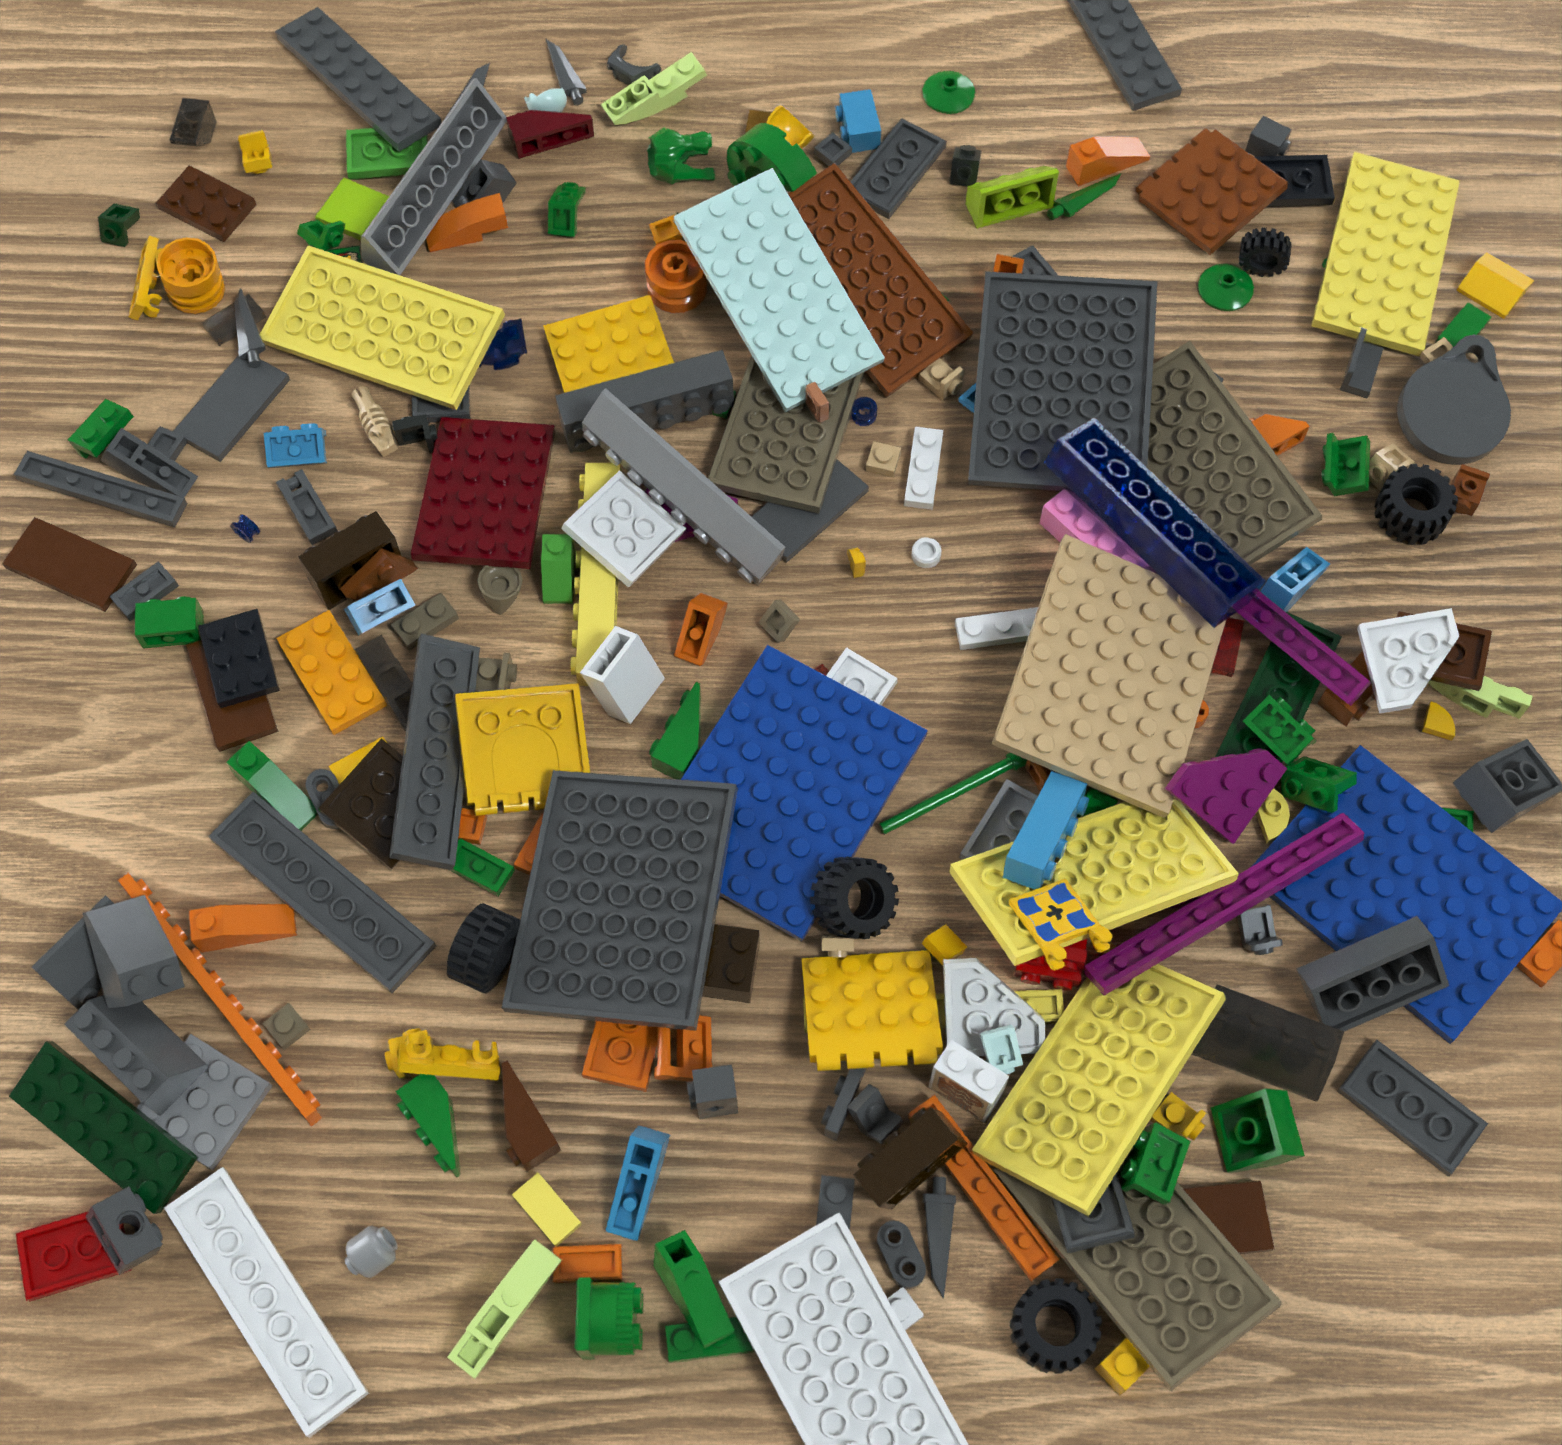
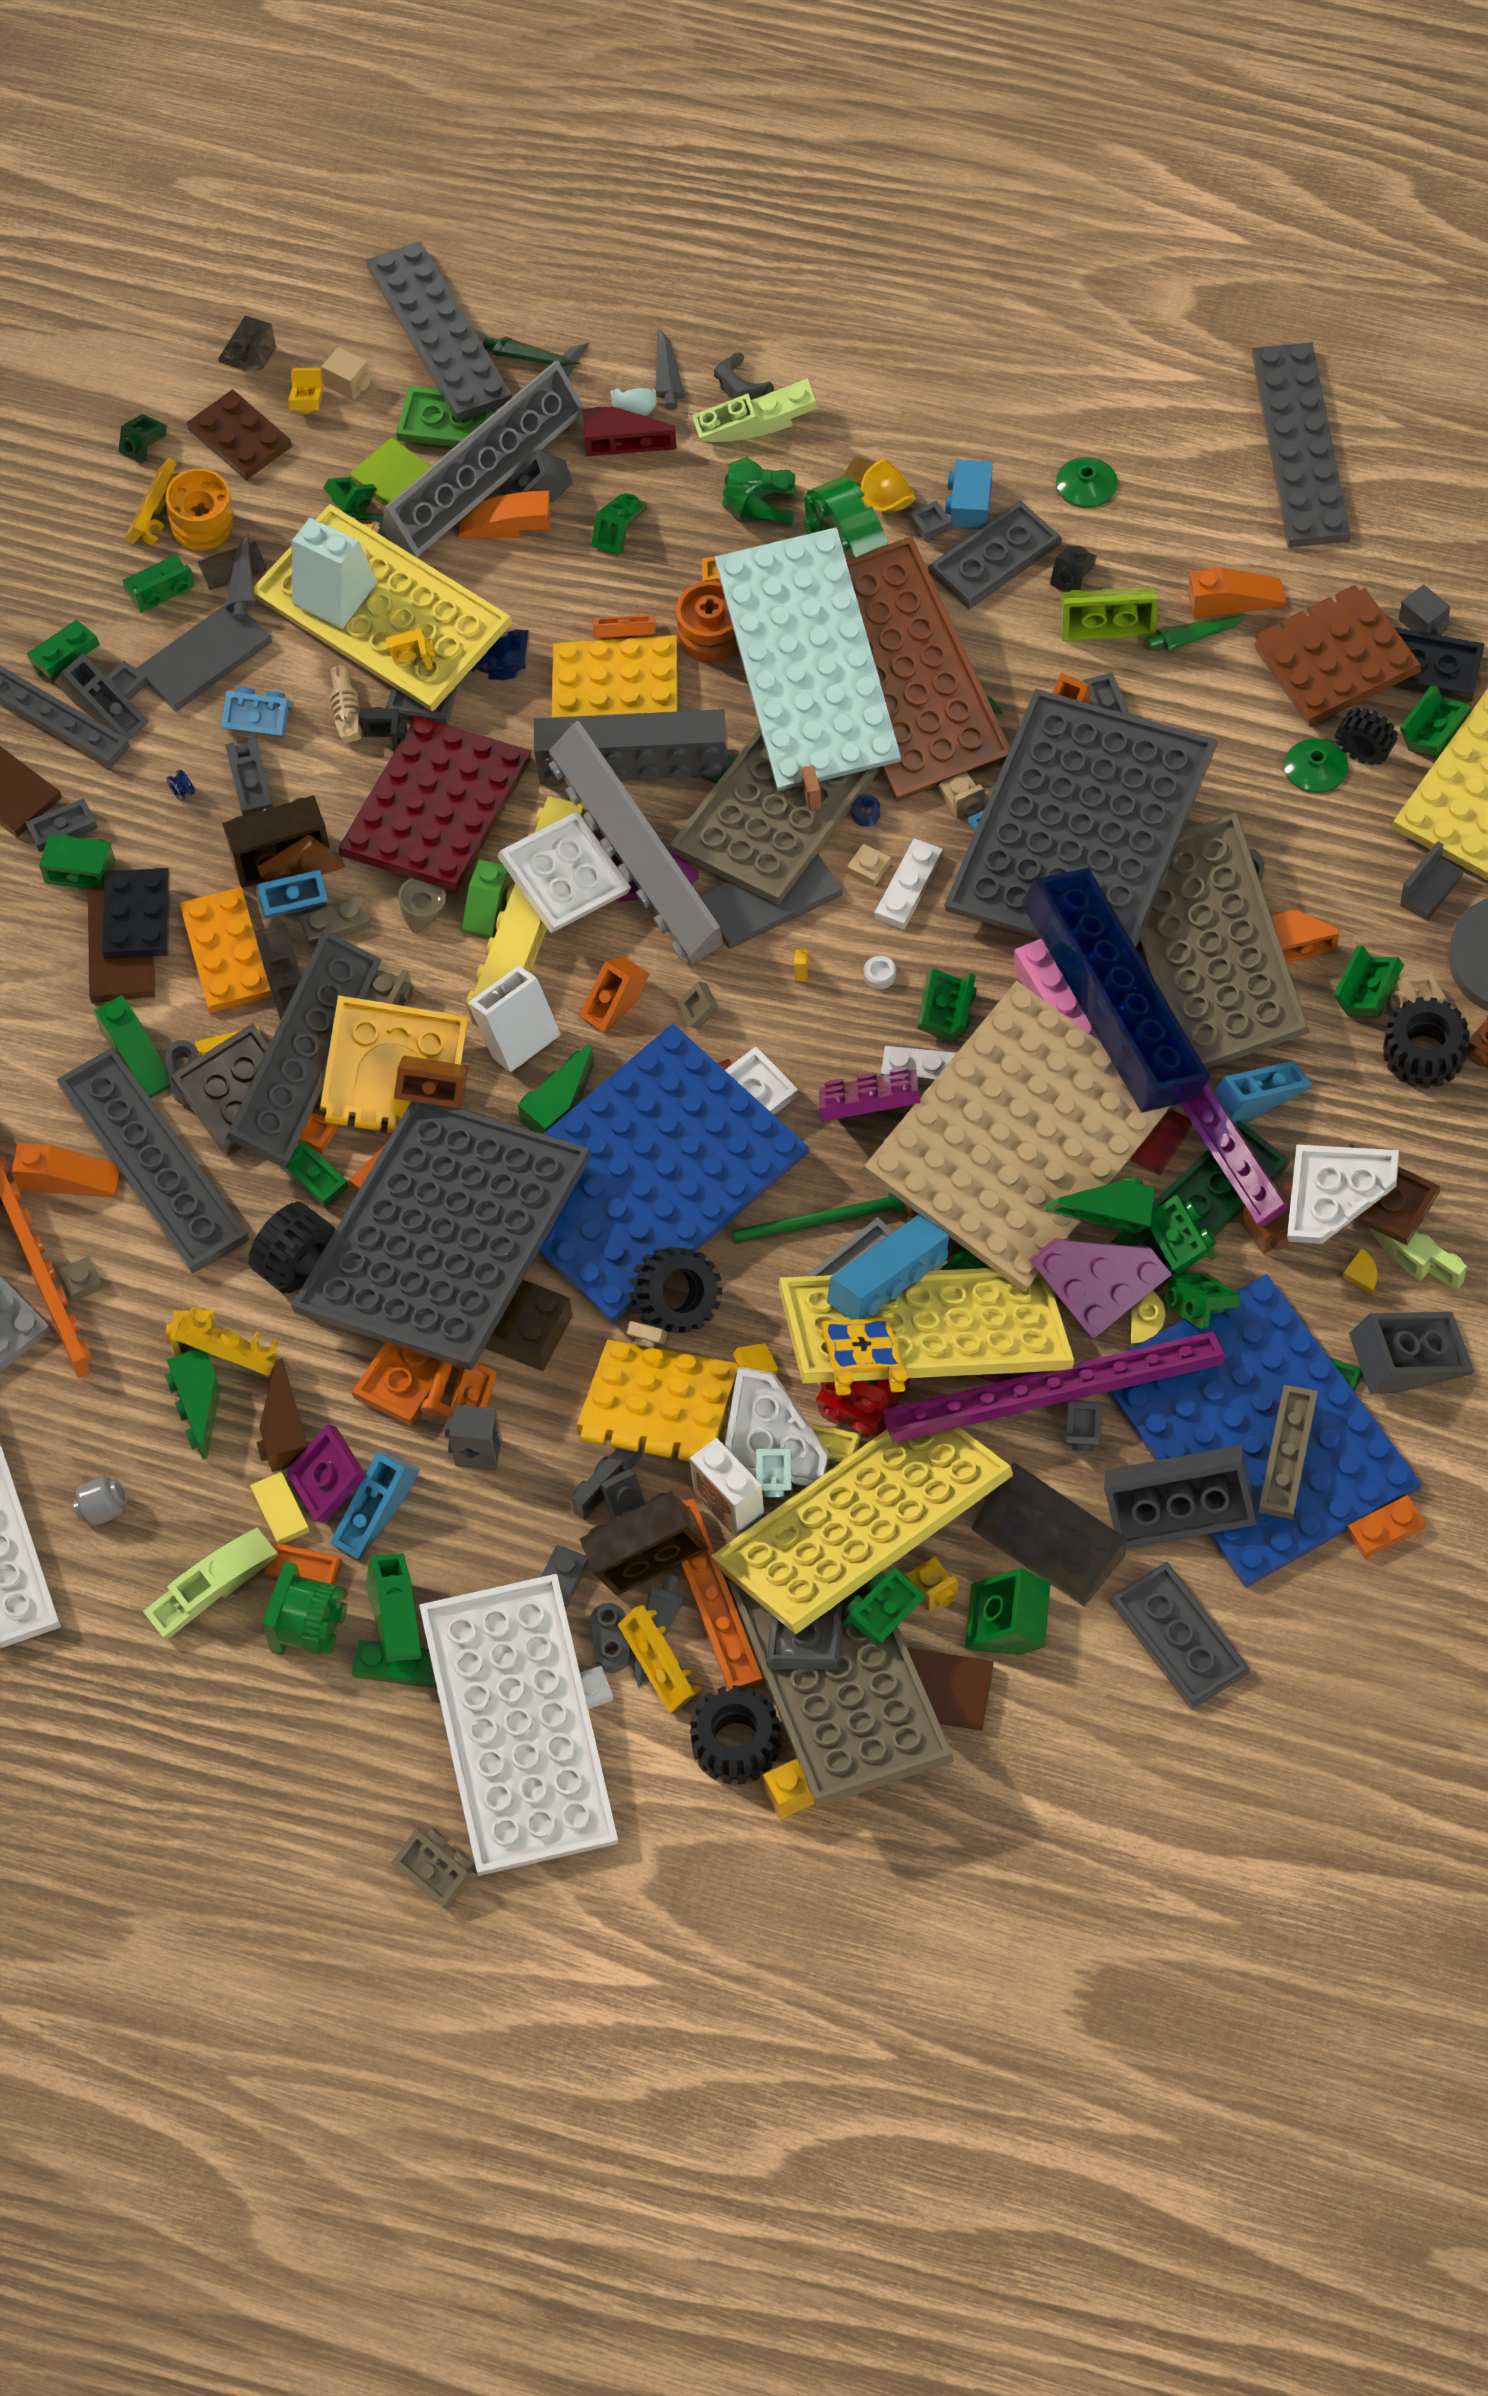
camera: 20 degrees right, 5 degrees down
(171, 349) = (159, 583): none -> green bracket
(286, 130) = (346, 373): none -> tan brick
(328, 305) = (329, 573): none -> light aqua slope
(421, 355) = (410, 646): none -> yellow bracket
(424, 80) = (515, 349): none -> dark green bar
(566, 754) = (431, 1082): none -> dark orange brick
(584, 1166) = (326, 1474): none -> magenta plate
(600, 297) = (631, 626): none -> orange plate
(957, 1269) = (657, 1658): none -> yellow plate
(966, 668) = (868, 1094): none -> magenta plate
(997, 568) = (946, 1004): none -> green bracket
(1219, 718) = (1118, 1205): none -> green slope
(1312, 230) = (1433, 723): none -> green bracket
(1450, 909) = (1288, 1452): none -> dark tan plate

